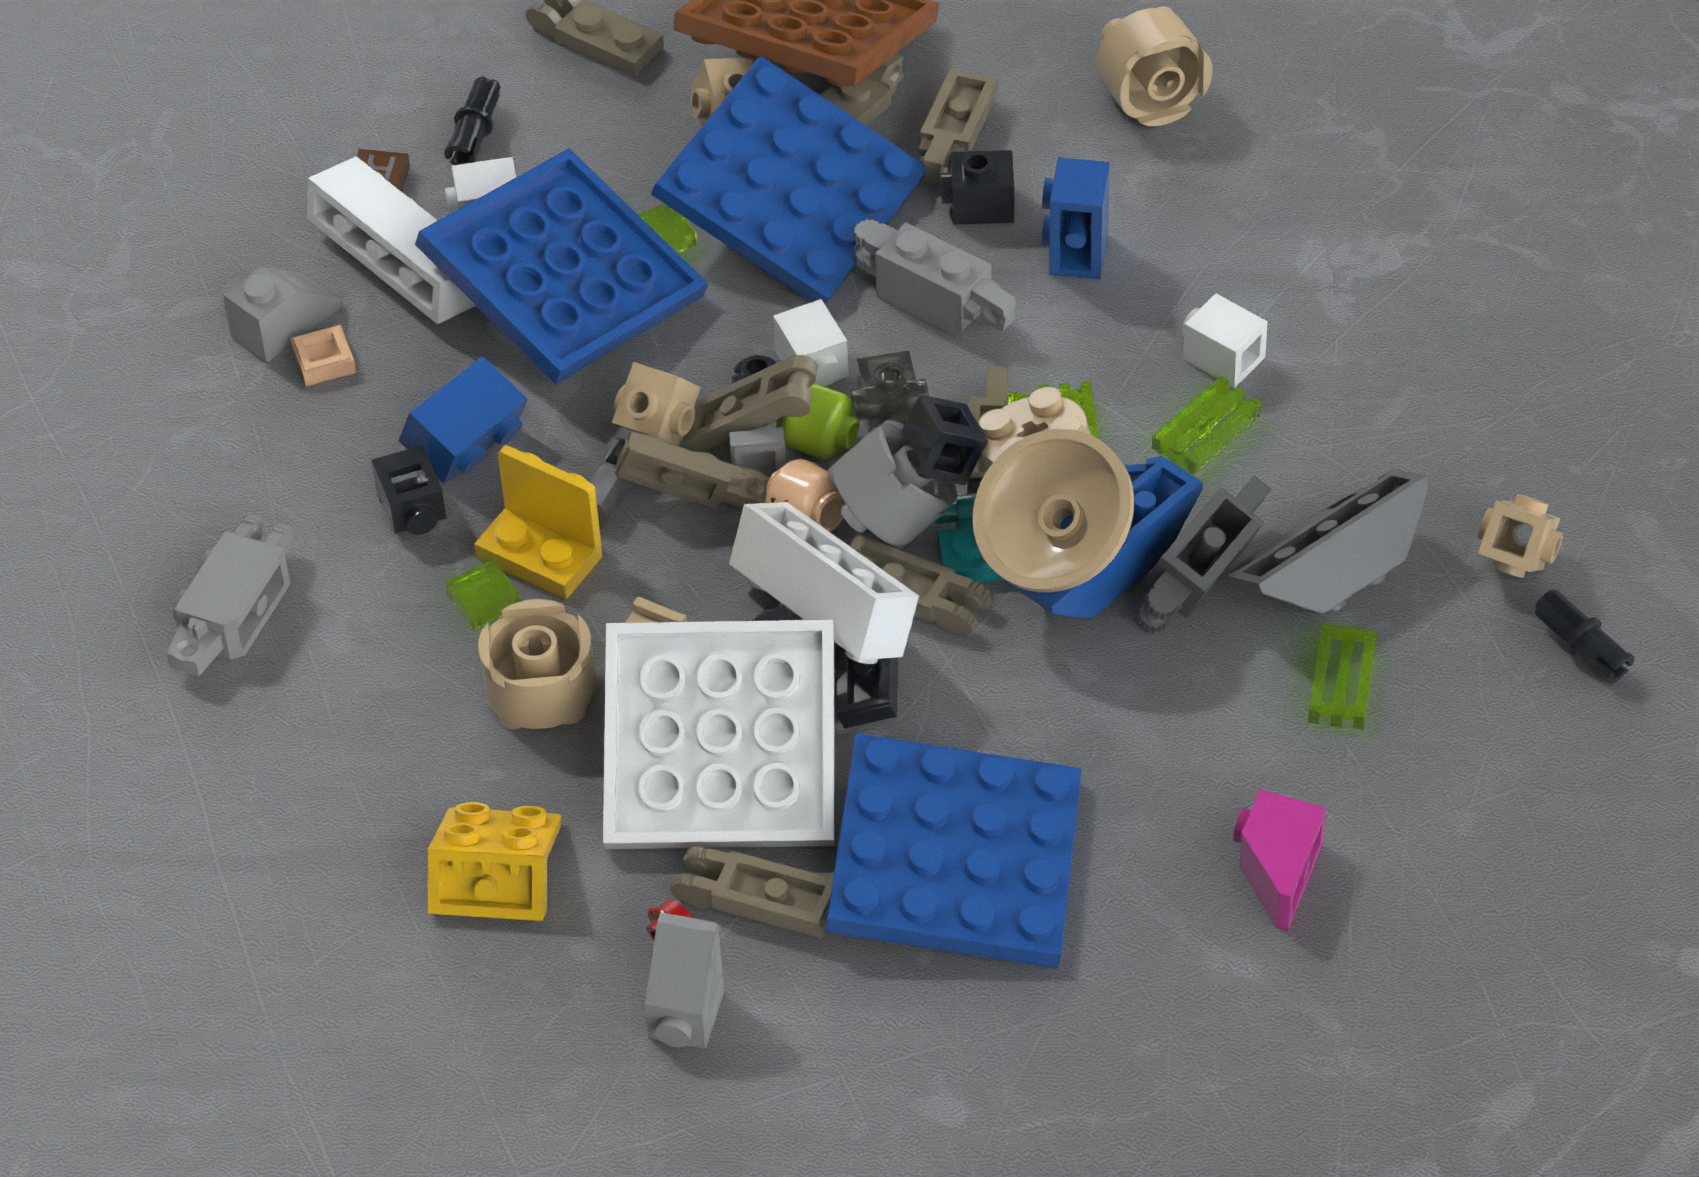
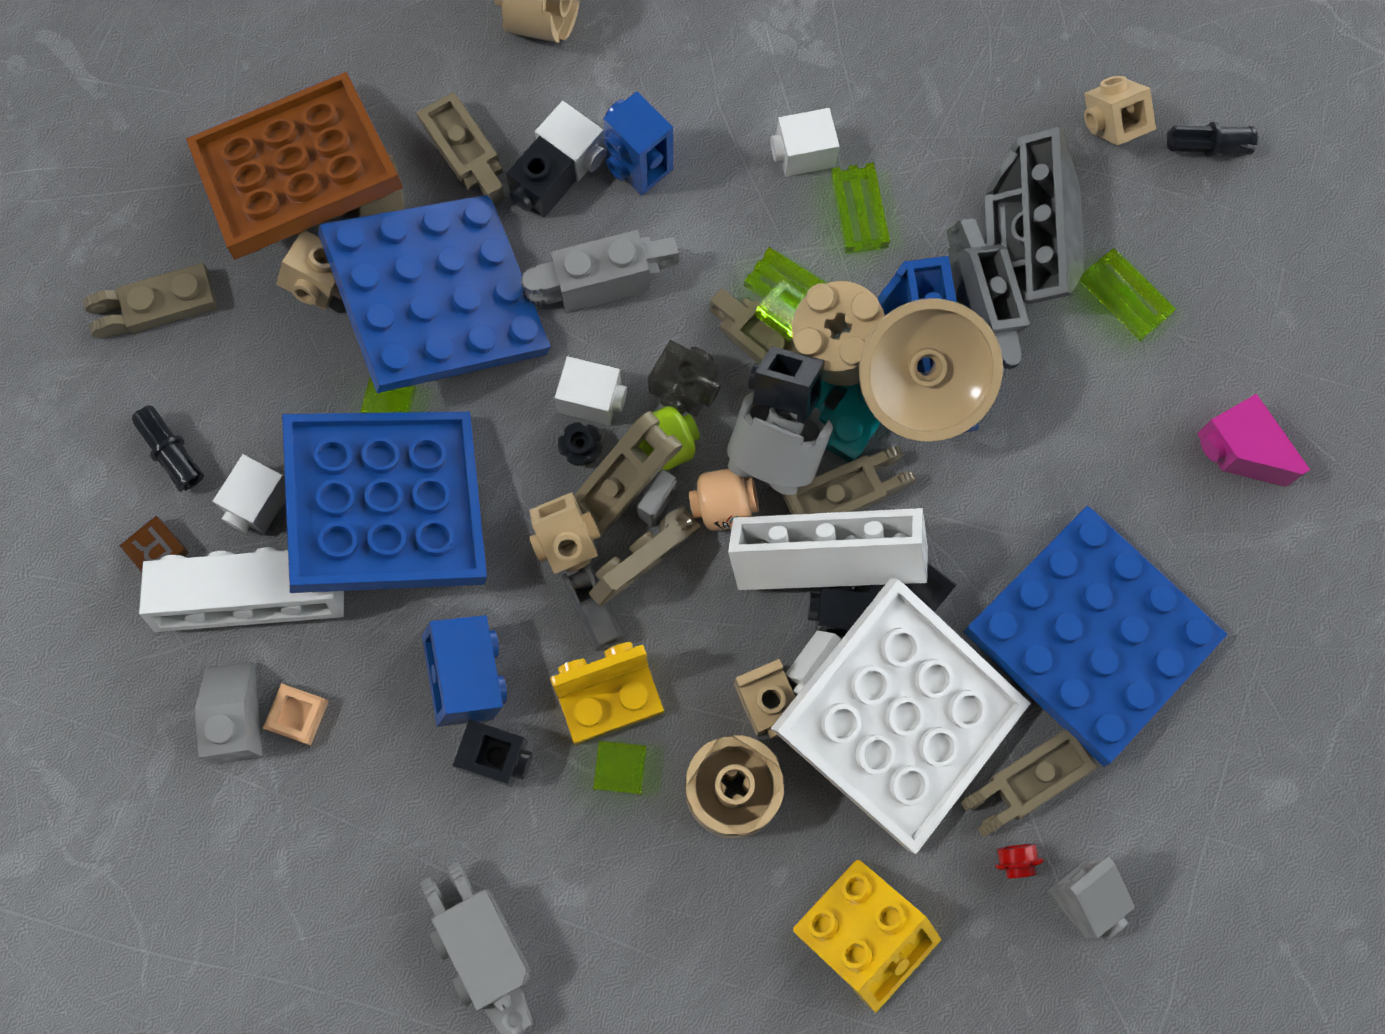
camera: 55 degrees left, 25 degrees up
(1030, 168) = (575, 137): none -> white brick

